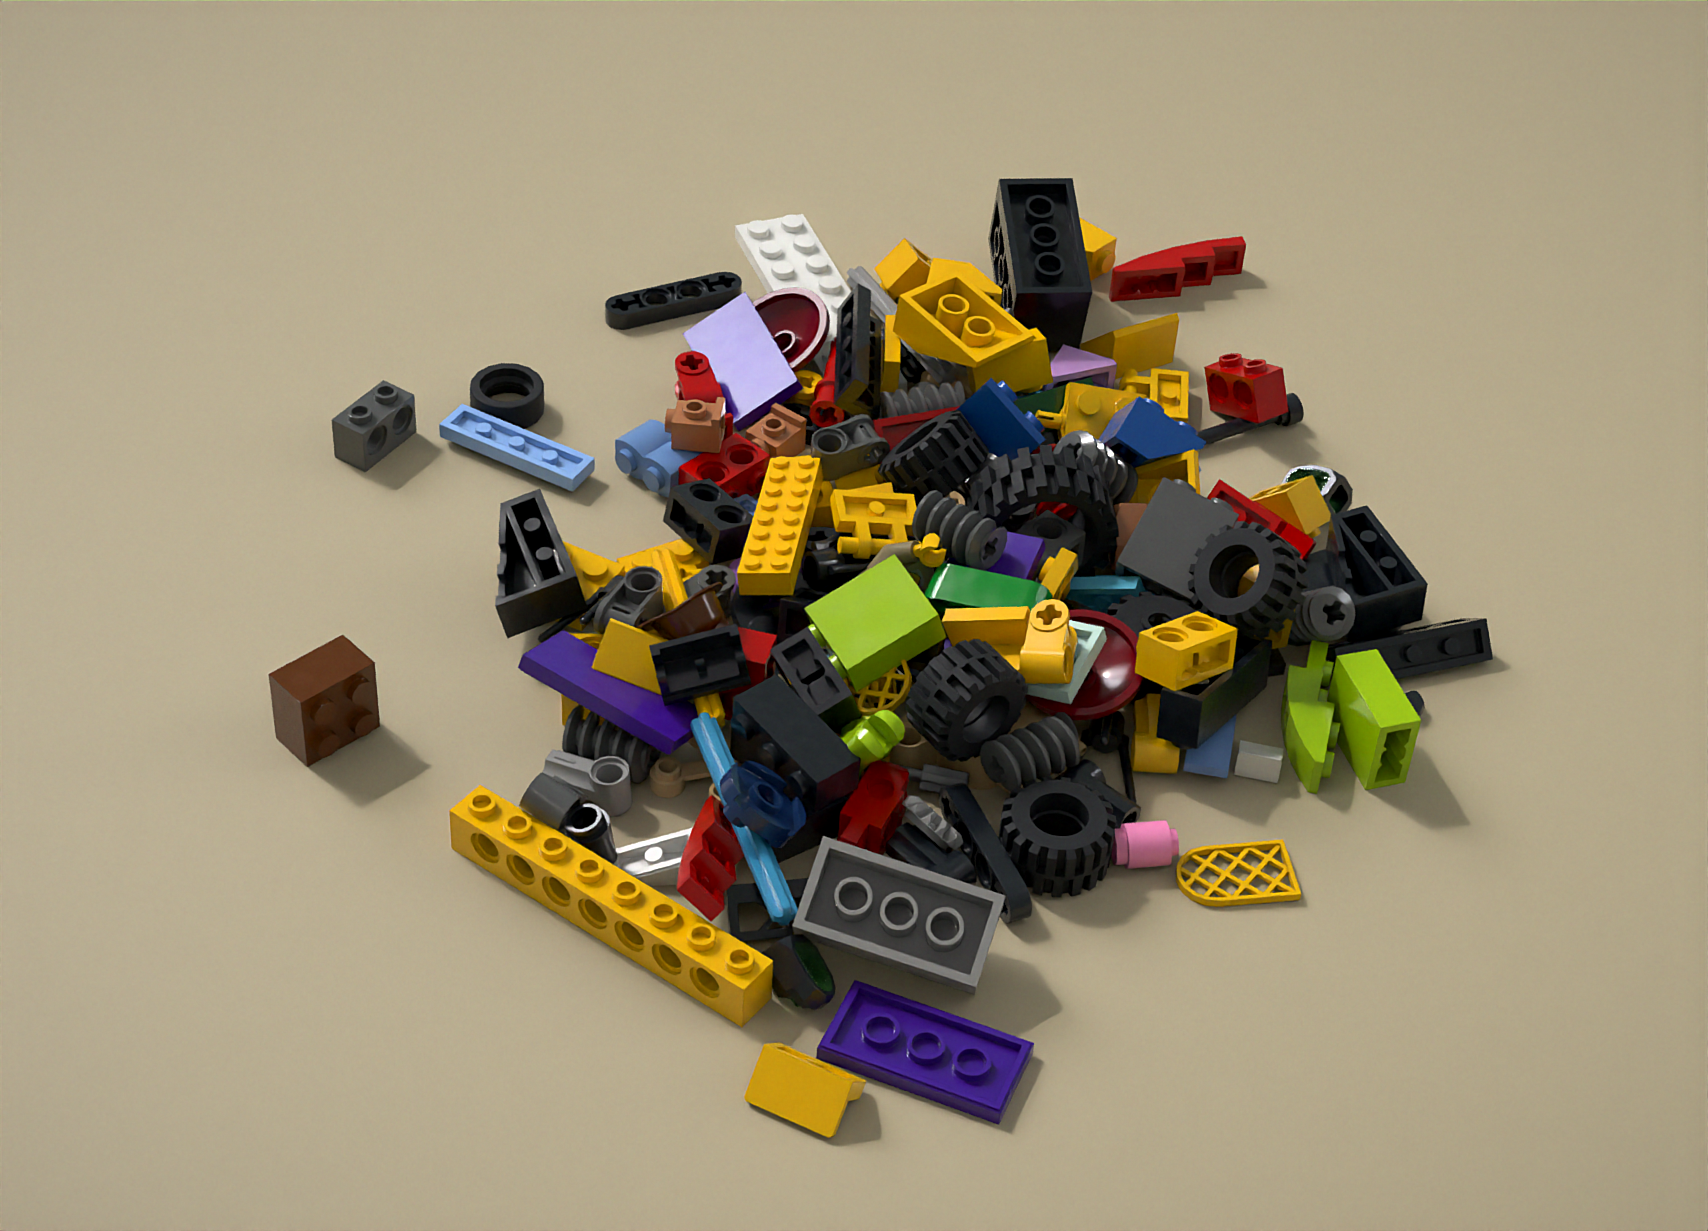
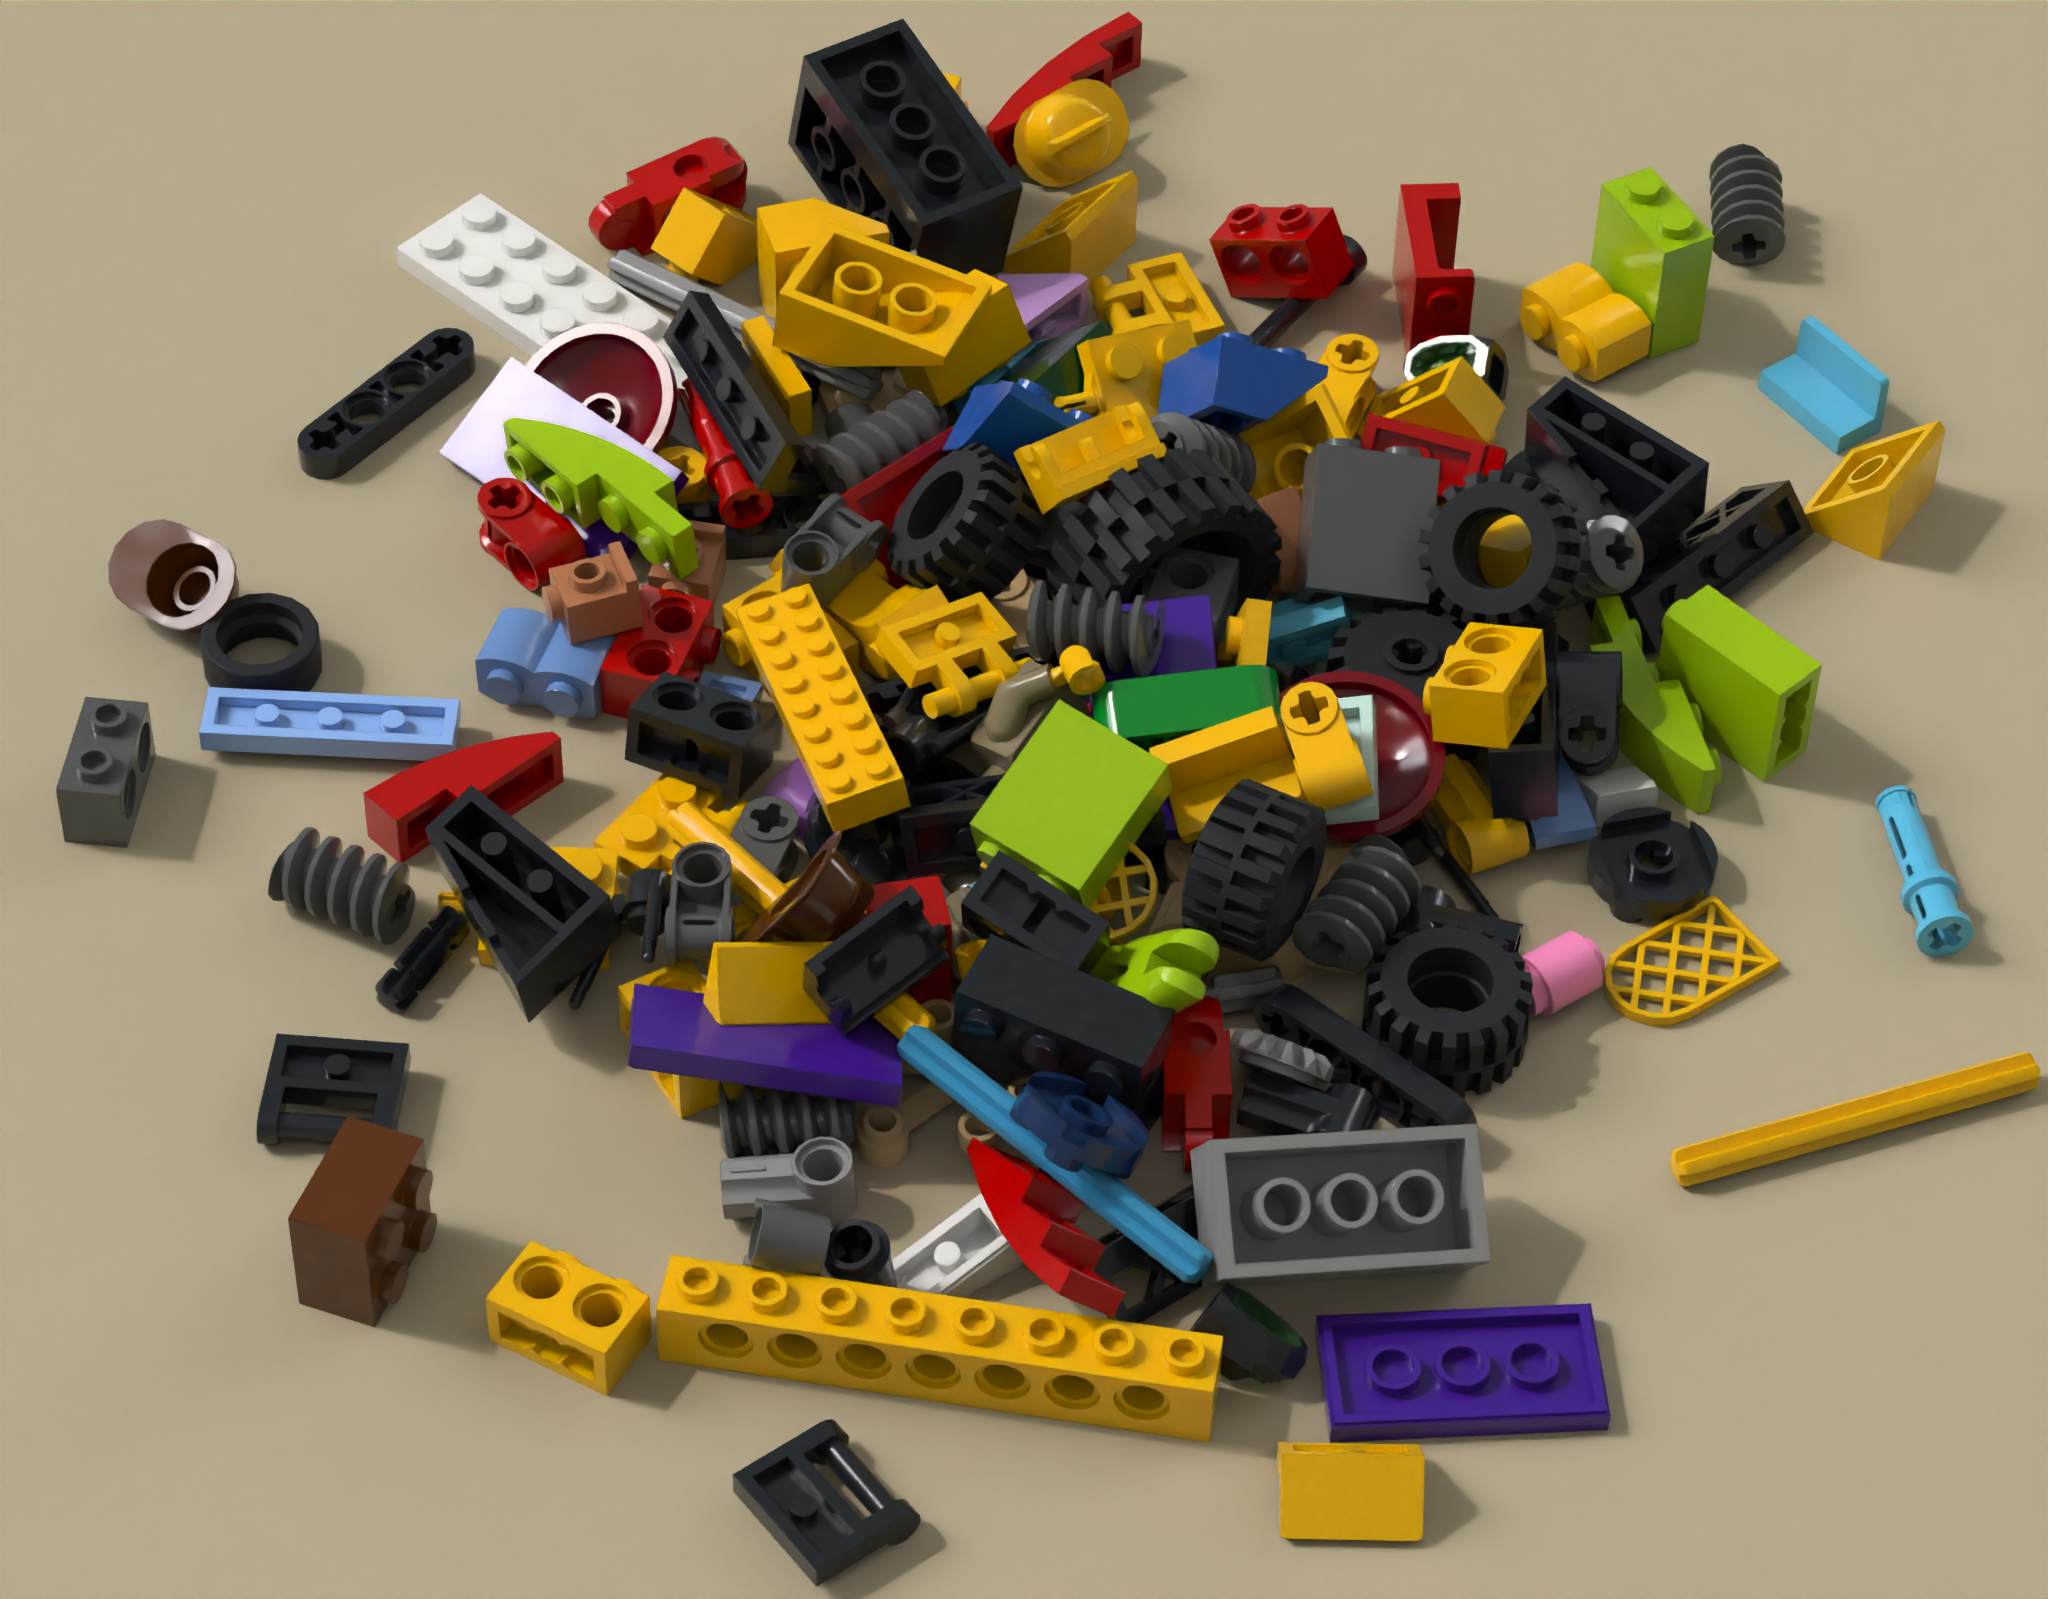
camera: 25 degrees left, 5 degrees up
(381, 625) = (330, 1075): none -> black plate
(409, 800) = (569, 1317): none -> yellow brick
(458, 529) = (343, 886): none -> dark grey piece
(466, 962) = (810, 1515): none -> black plate
(468, 587) = (422, 959): none -> black axle
(483, 340) = (172, 575): none -> reddish brown piece
(575, 503) = (505, 770): none -> red slope
(744, 371) = (603, 481): none -> lime slope
(934, 238) = (639, 210): none -> red piece
(1005, 435) = (1085, 455): none -> yellow hinge
(1167, 289) = (1071, 133): none -> yellow piece
(1234, 820) = (1645, 892): none -> black plate
(1239, 469) = (1349, 376): none -> yellow piece
(1262, 691) = (1589, 699): none -> black piece
(1288, 1005) = (1854, 1119): none -> yellow axle
(1335, 420) = (1428, 289): none -> red panel
(1419, 492) = (1585, 322): none -> yellow brick
(1427, 888) = (1927, 889): none -> medium azure pin
(1475, 467) = (1654, 255): none -> lime brick
(1551, 651) = (1878, 489): none -> yellow slope
(1555, 582) = (1828, 388): none -> medium azure panel
(1567, 463) = (1746, 206): none -> dark grey piece

